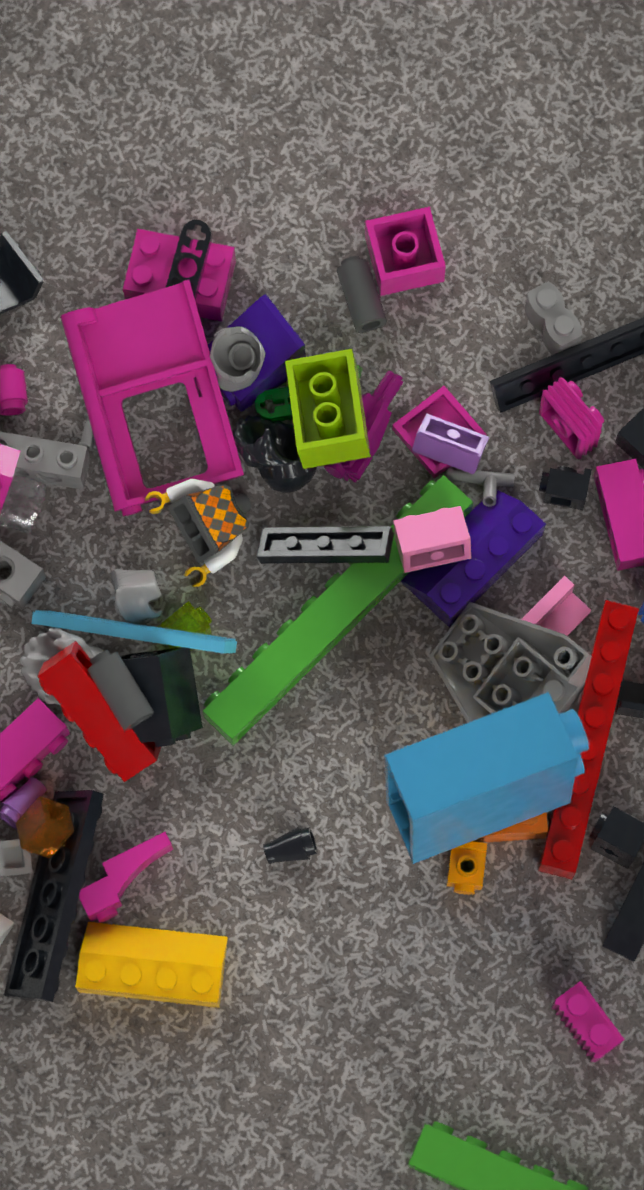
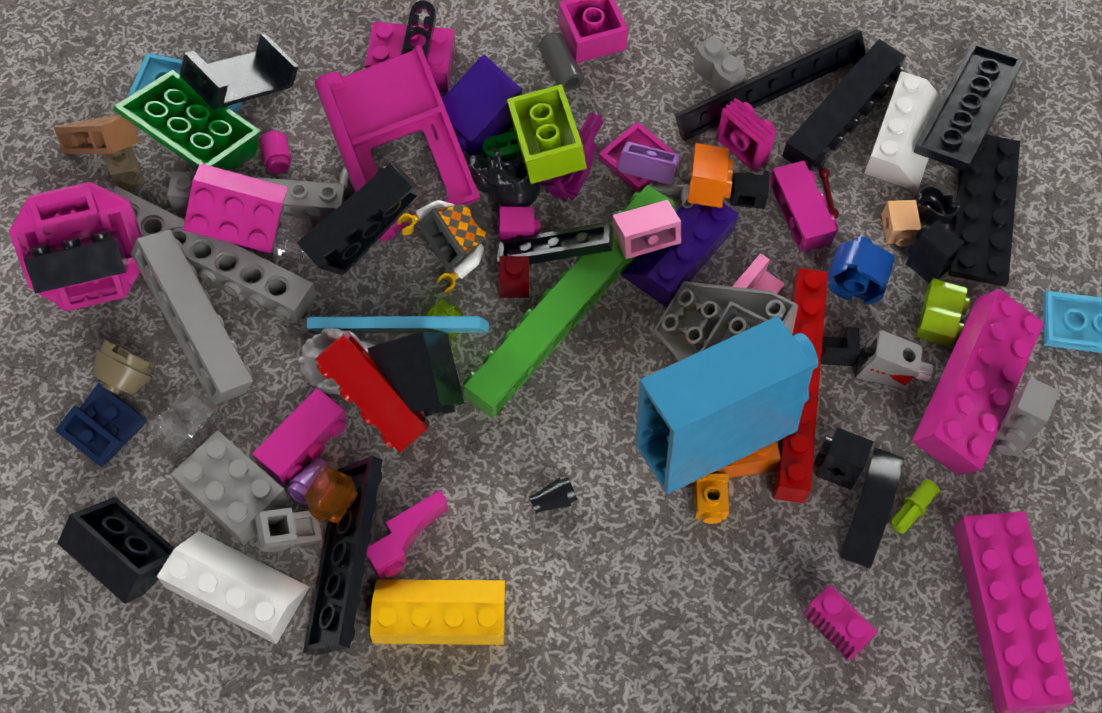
camera: 10 degrees left, 10 degrees down
(102, 498) = (360, 220): none -> black wedge
(119, 689) = (390, 364): dark grey brick -> none
(134, 593) = (394, 296): light grey hair -> none
(236, 358) = (465, 104): light grey hair -> none
(274, 577) = (514, 276): none -> dark red brick
(286, 509) = (518, 222): none -> dark pink brick
(518, 471) = (710, 176): none -> orange brick

